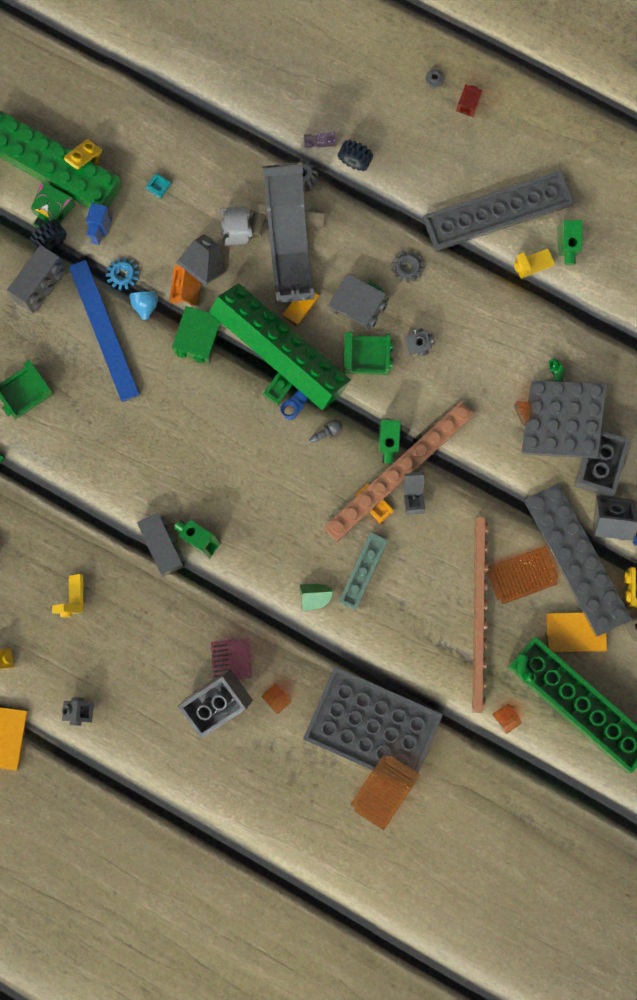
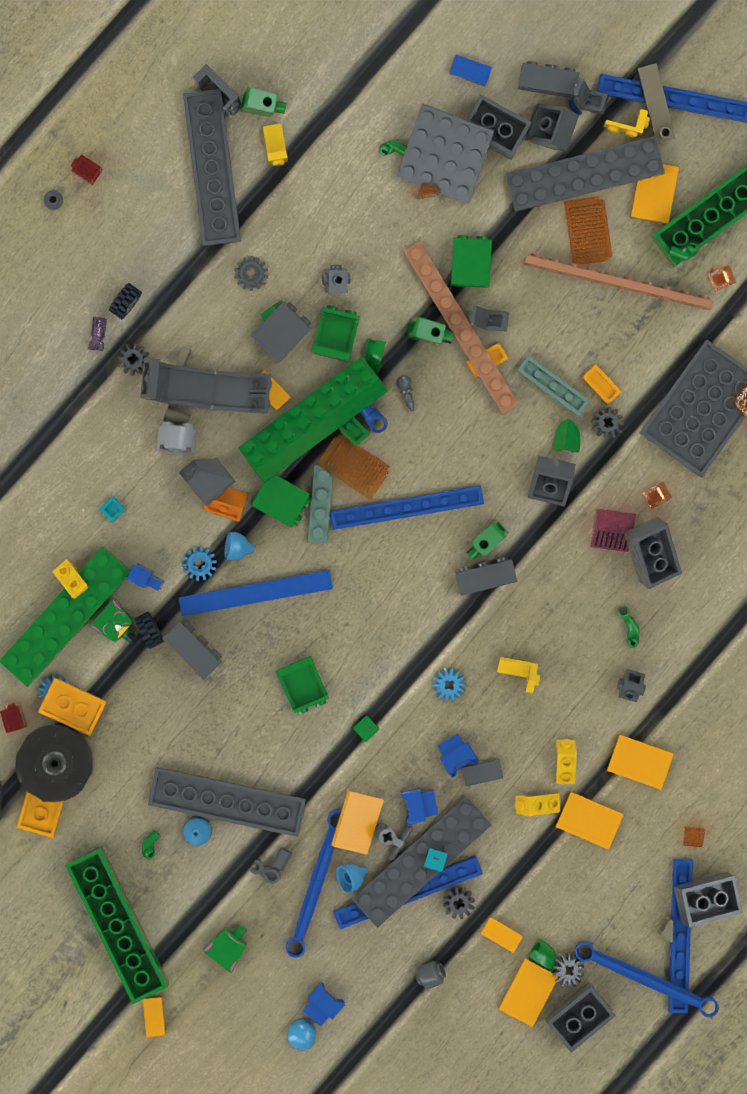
camera: 75 degrees left, 10 degrees up
(55, 531) = (441, 684): none -> dark azure gear
(136, 702) = (633, 629): none -> green arm
(200, 373) = (320, 505): none -> sand green plate
(214, 456) = (407, 507): none -> blue tile
(243, 397) = (354, 466): none -> clear orange window
(268, 589) = (551, 480): none -> dark grey slope
(341, 638) = (614, 422): none -> dark grey gear
(356, 394) = (373, 353): none -> green brick
(374, 619) = (601, 384): none -> light orange tile
(465, 466) = (471, 262): none -> green panel
(579, 185) = (207, 75): none -> dark grey panel

